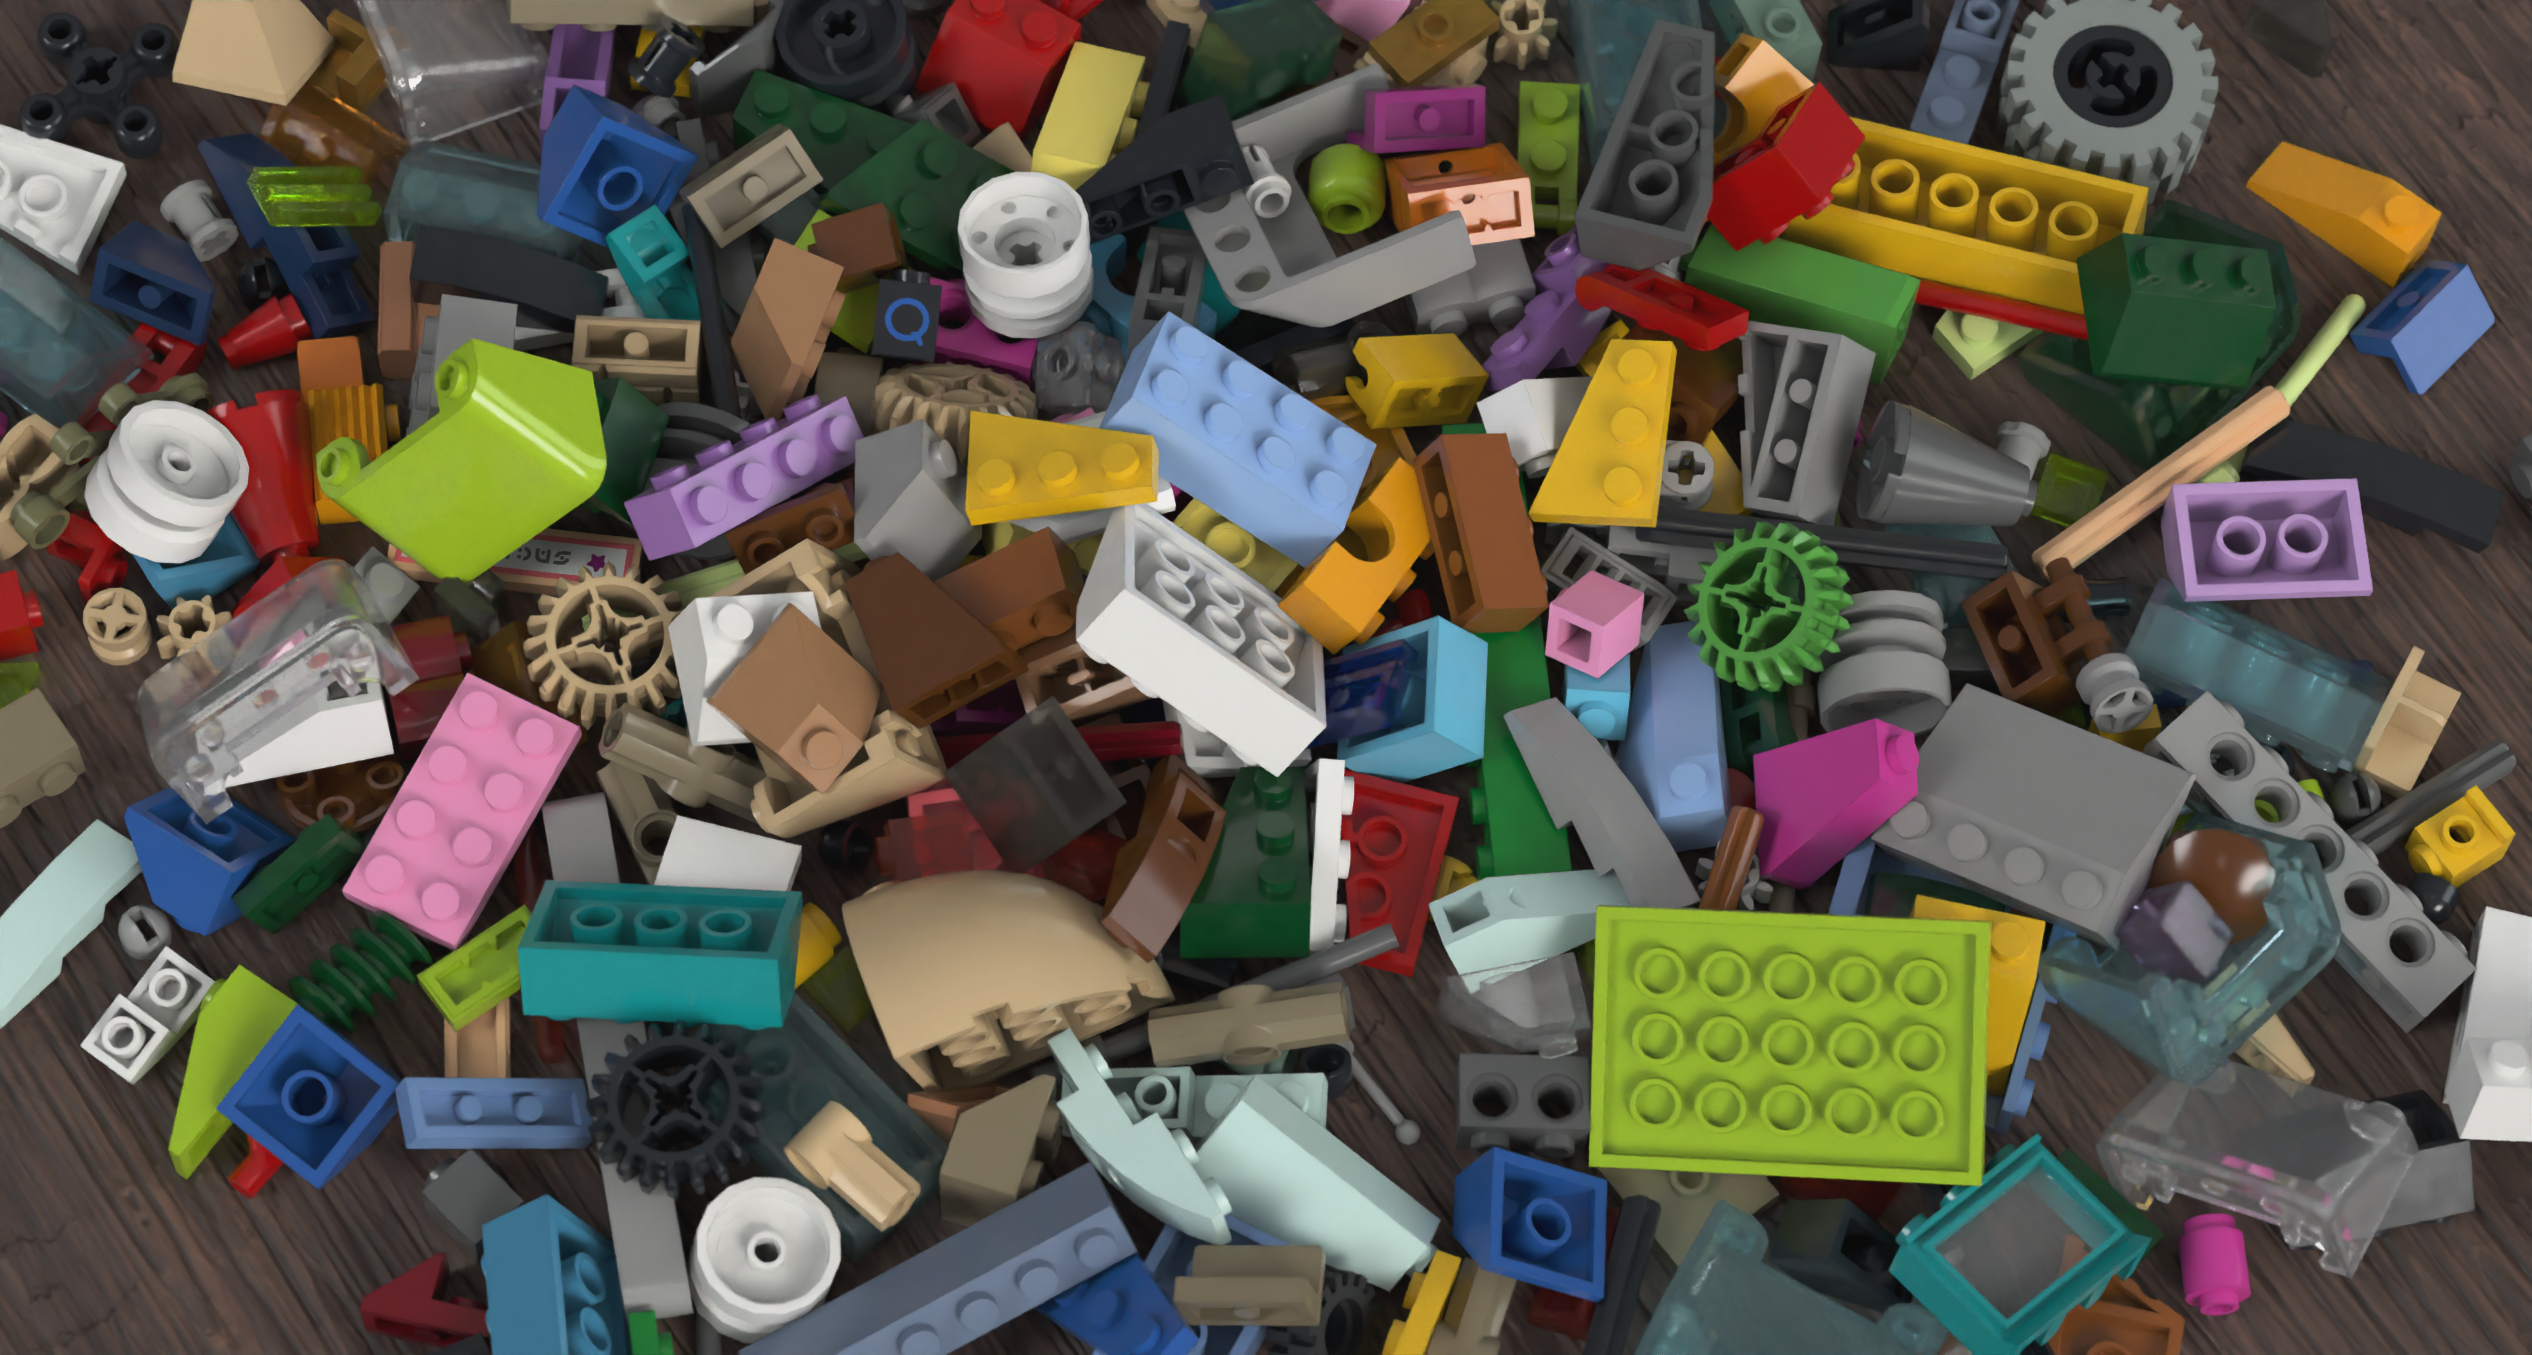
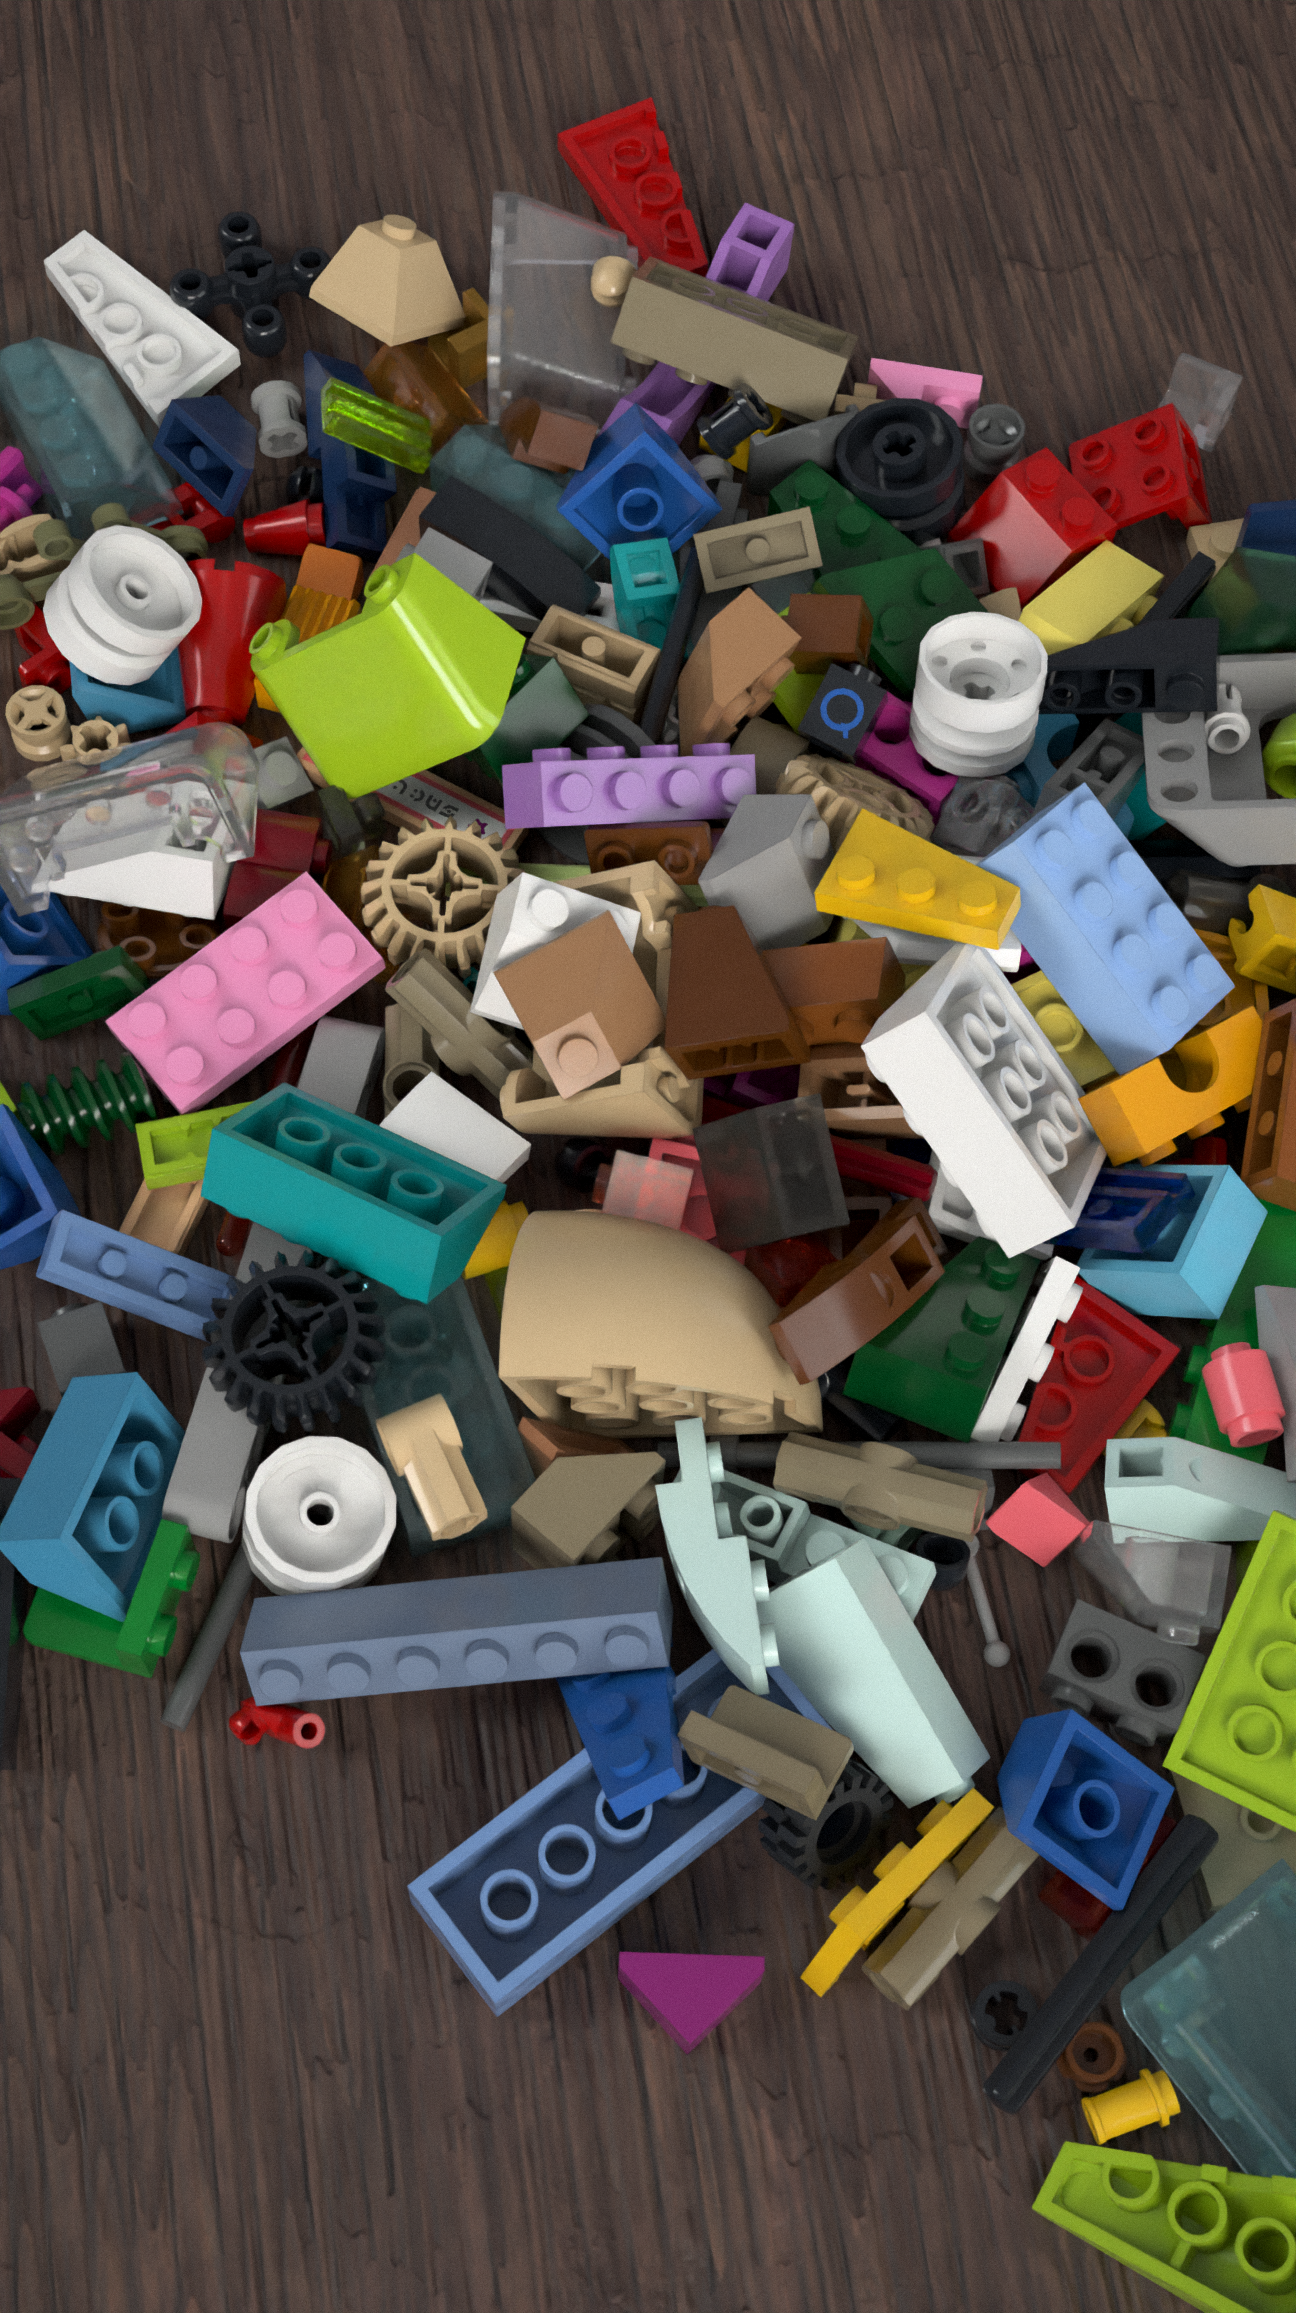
camera: 25 degrees right, 0 degrees up
(491, 143) = (547, 434): none -> reddish brown slope
(1397, 1000) = (1038, 1520): none -> coral slope
(1532, 816) = (1244, 1394): none -> coral brick

